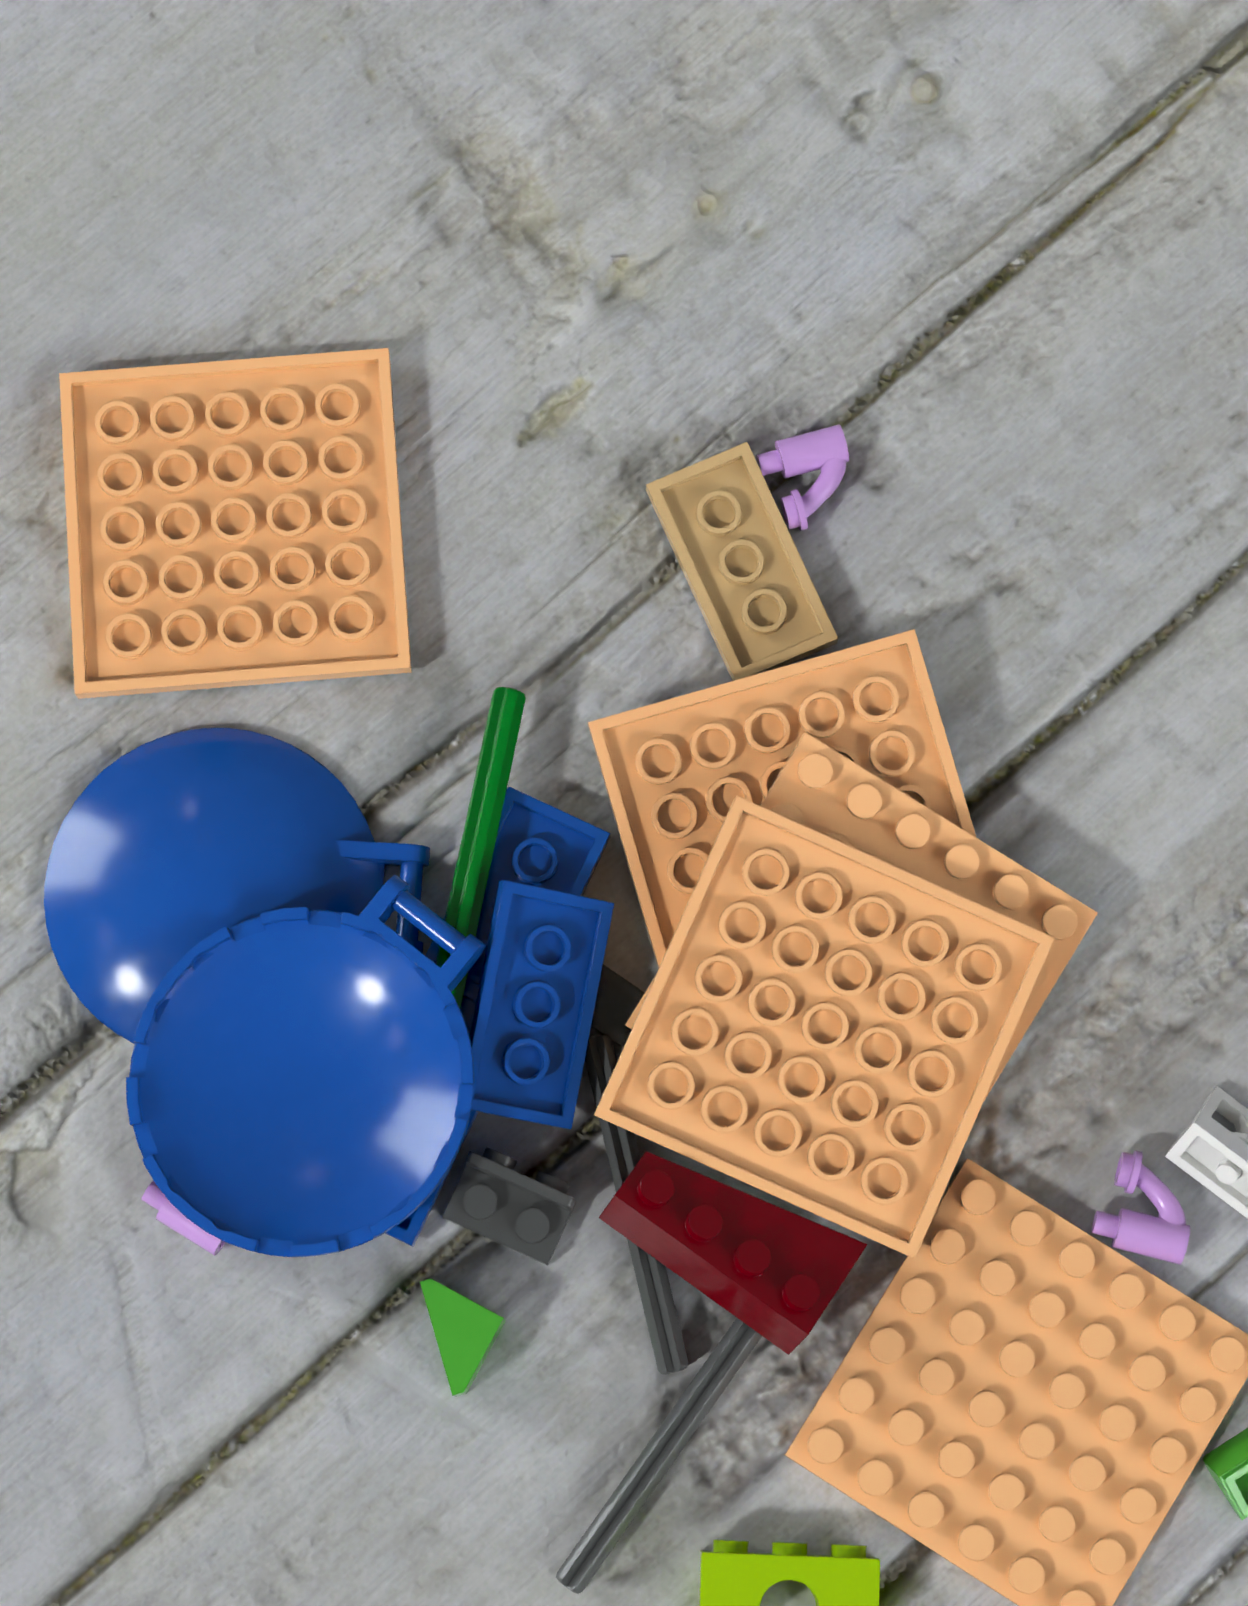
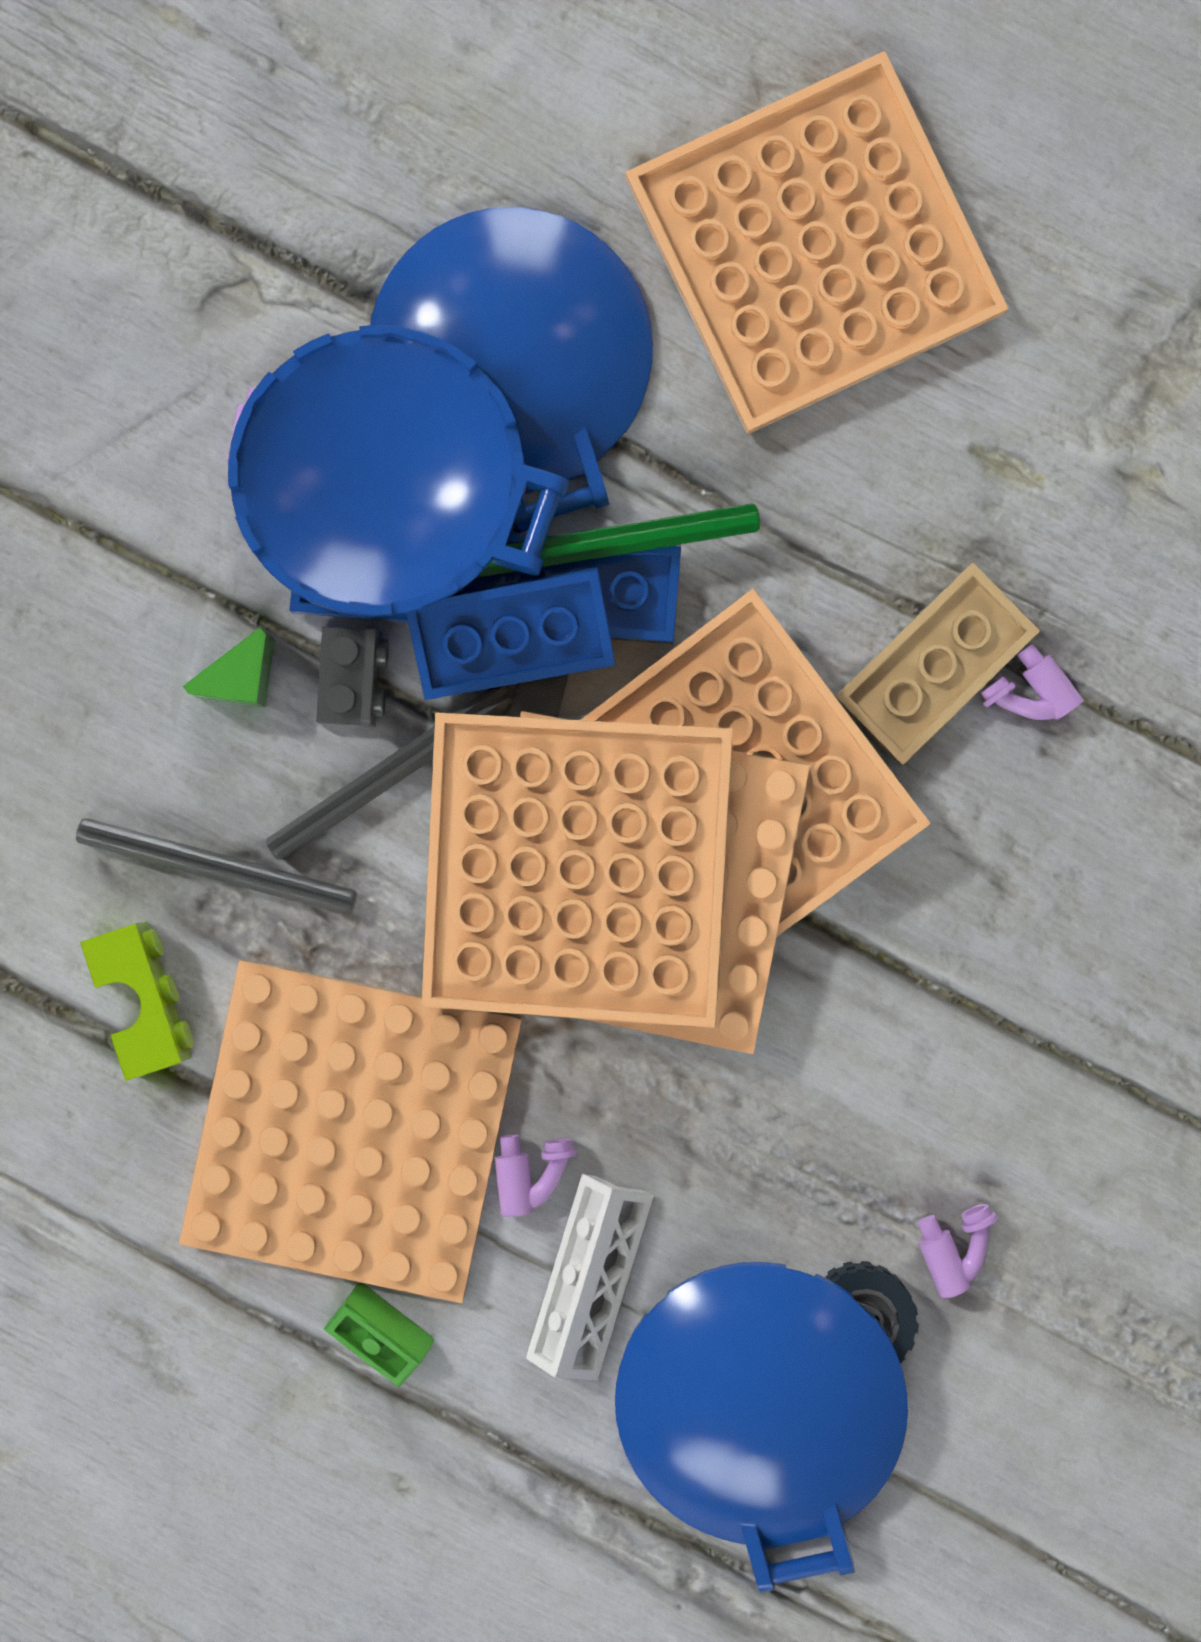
camera: 65 degrees right, 10 degrees up
(734, 1247) = (376, 865): dark red wedge -> none

